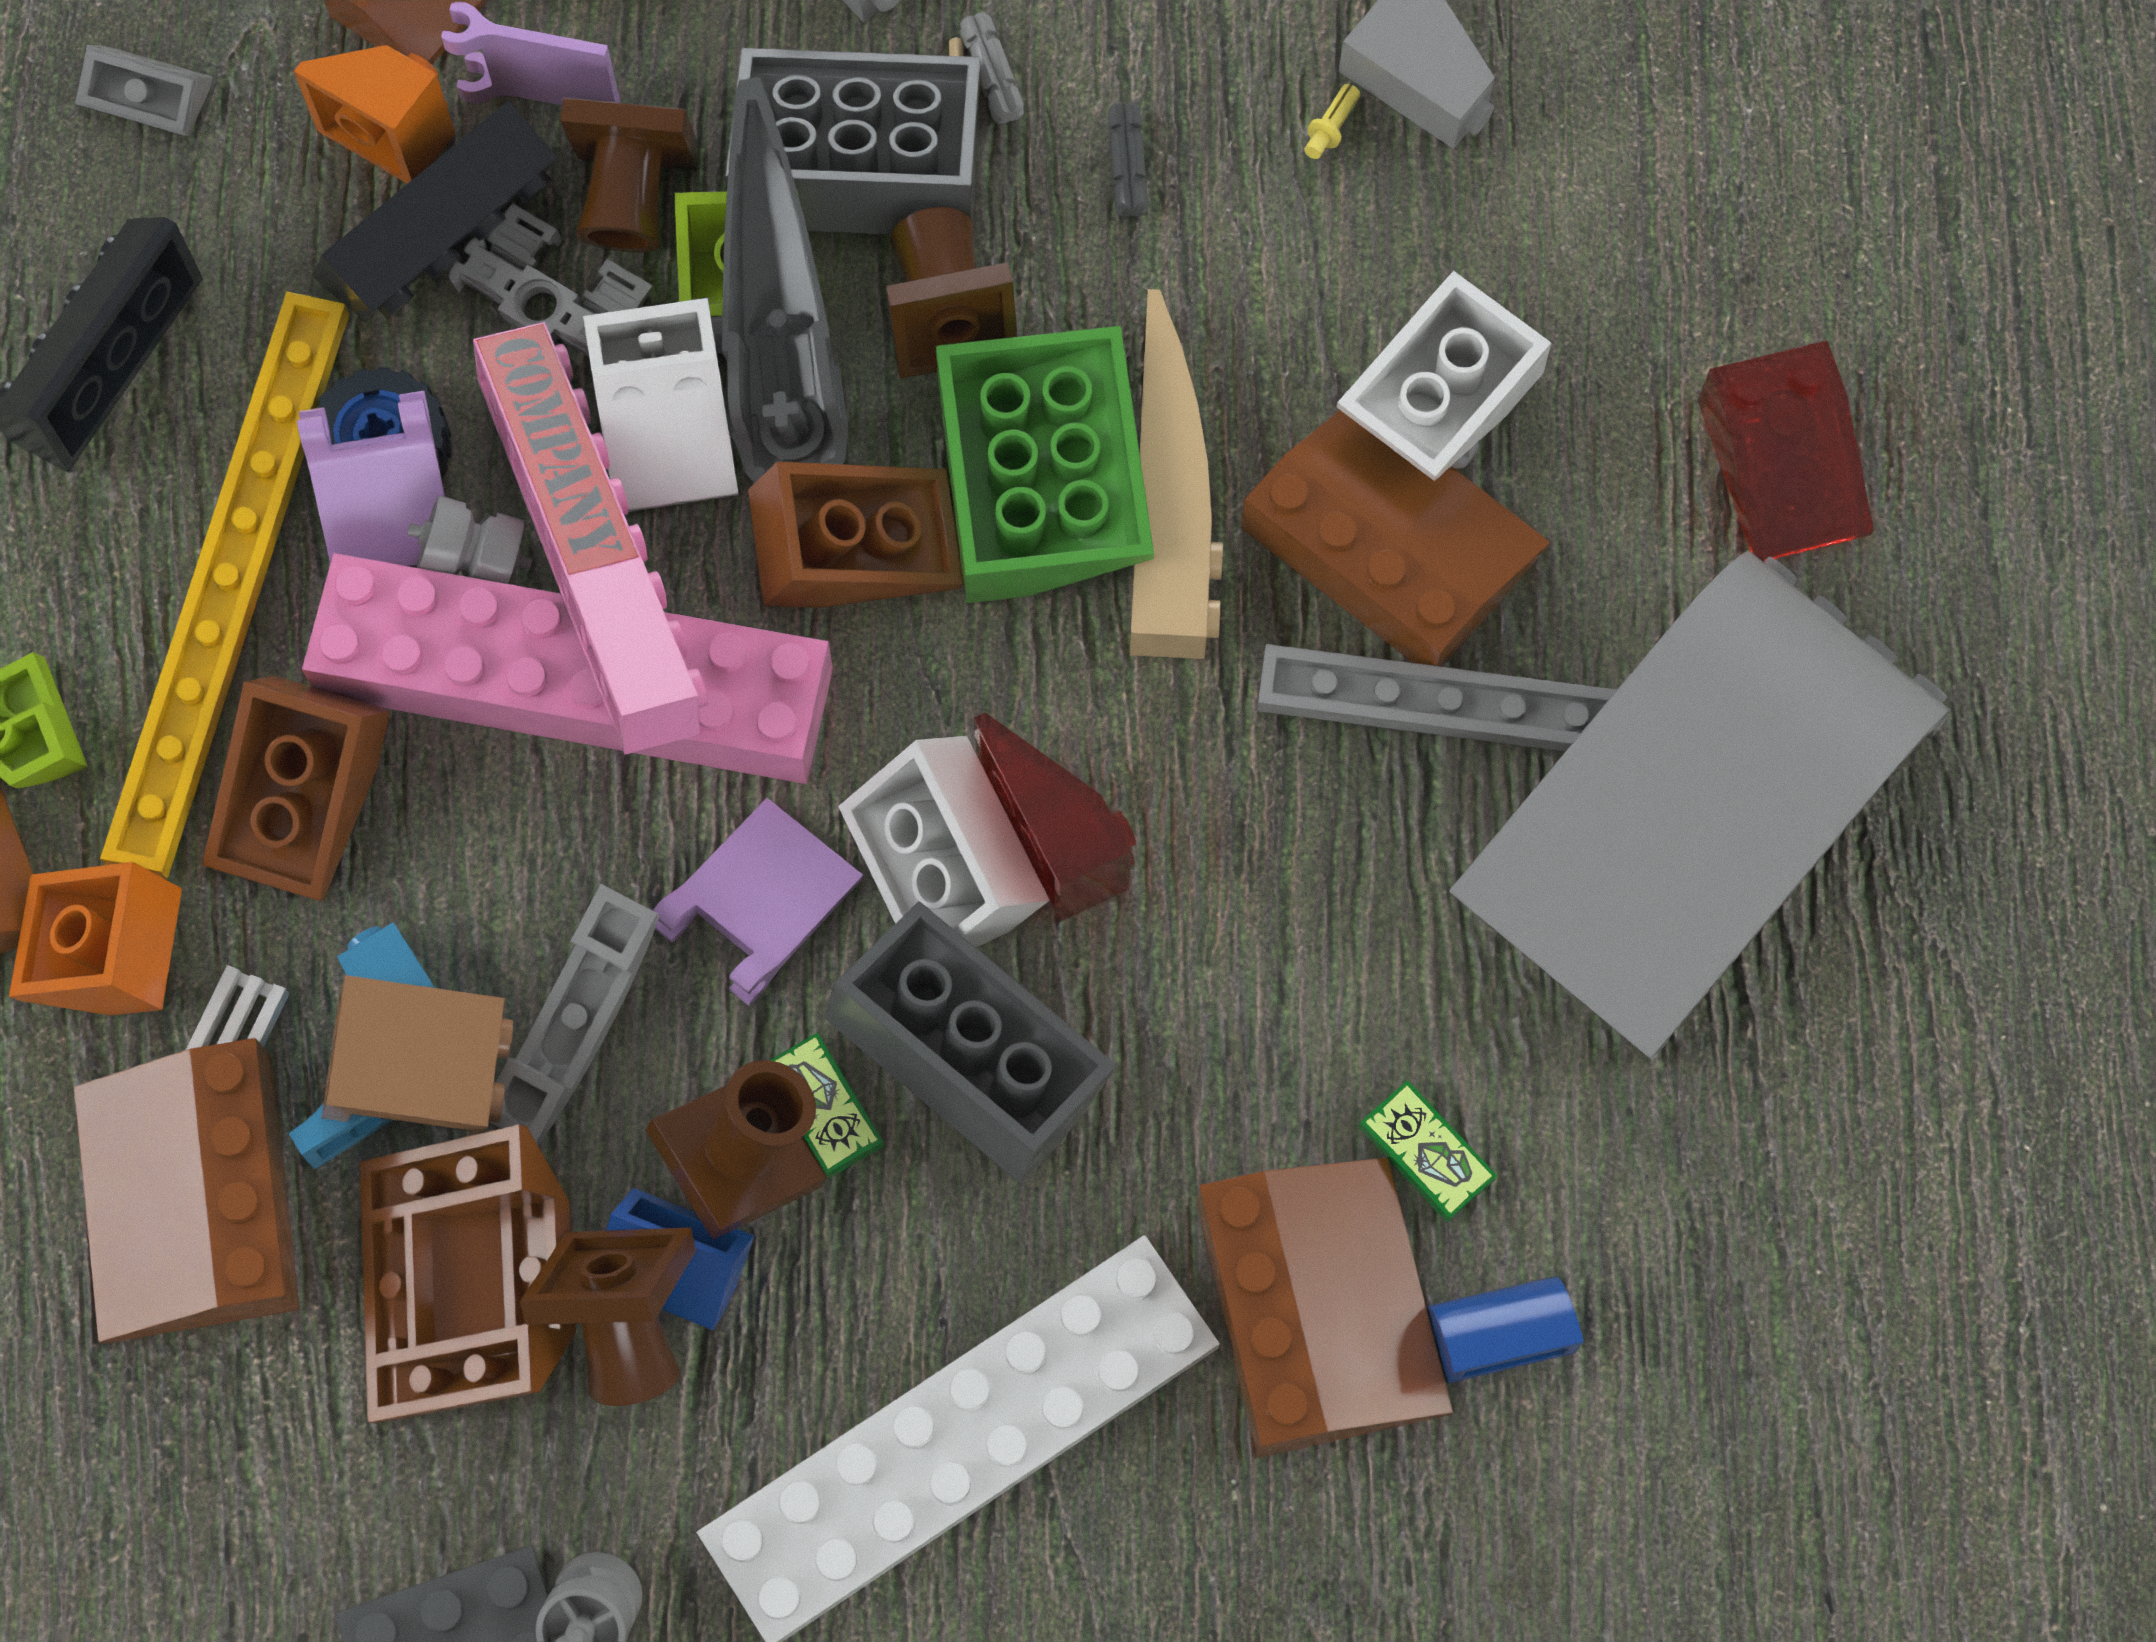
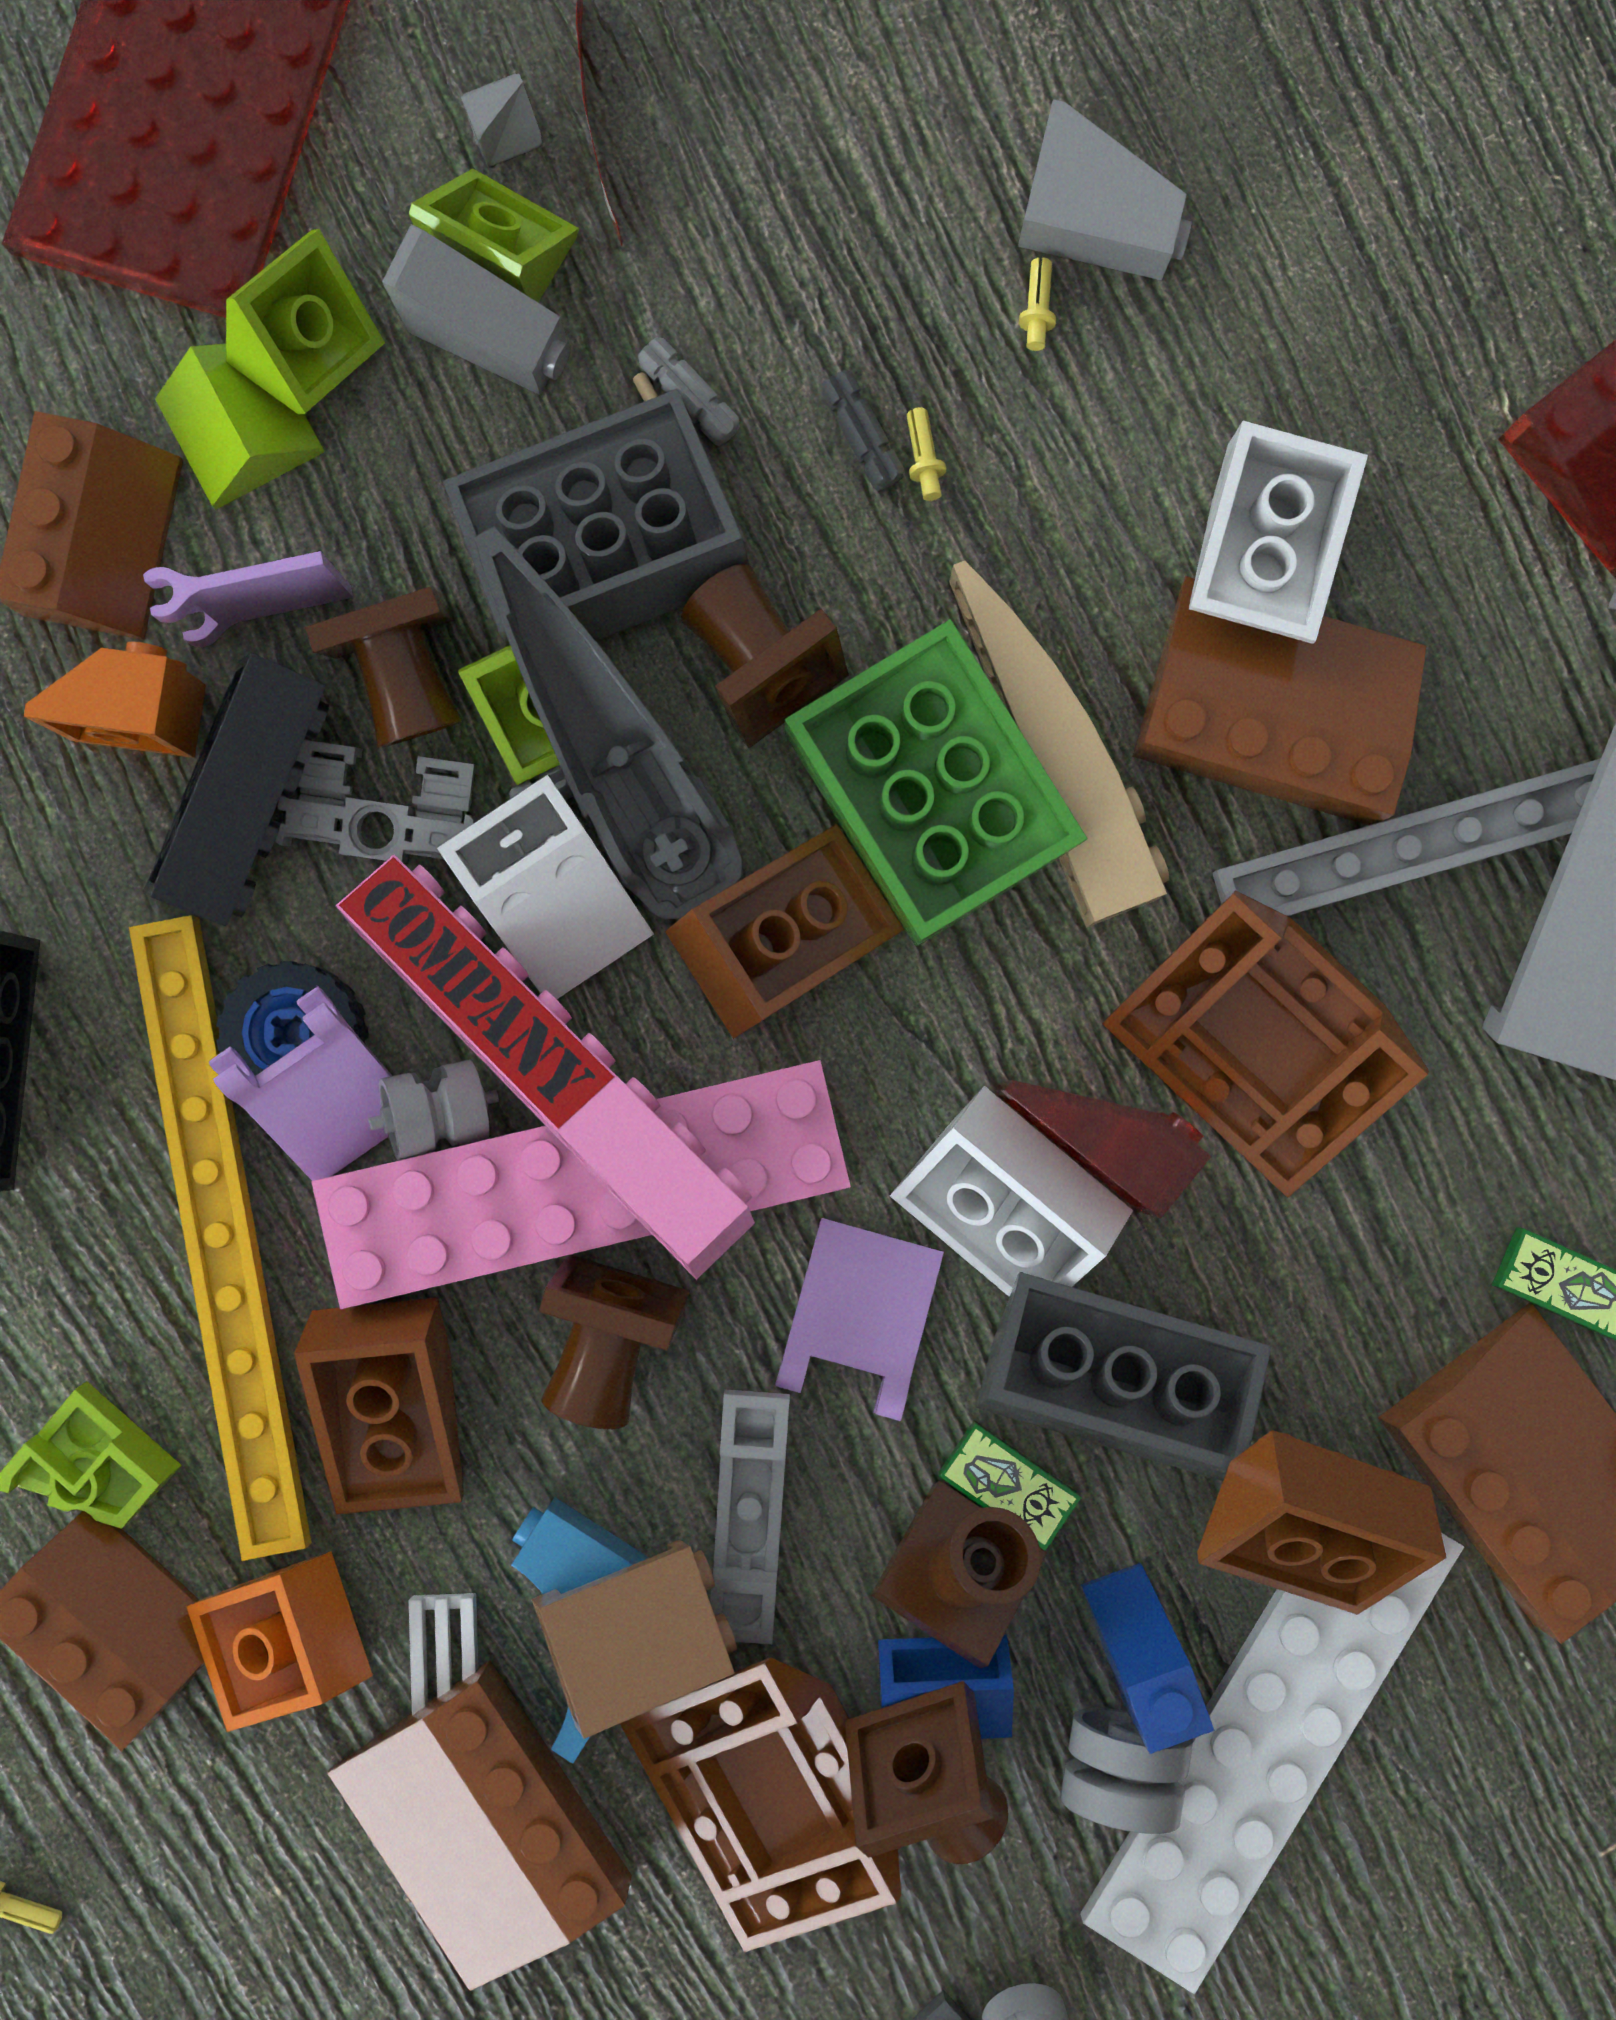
camera: 20 degrees left, 15 degrees up
(518, 803) = (610, 1321): none -> reddish brown plant
(803, 1388) = (1117, 1778): none -> light grey wheel
(867, 1297) = (1146, 1659): none -> blue slope
(1080, 1226) = (1320, 1524): none -> dark orange slope
(1169, 211) = (927, 467): none -> light yellow piece
(1241, 804) = (1269, 1040): none -> dark orange slope

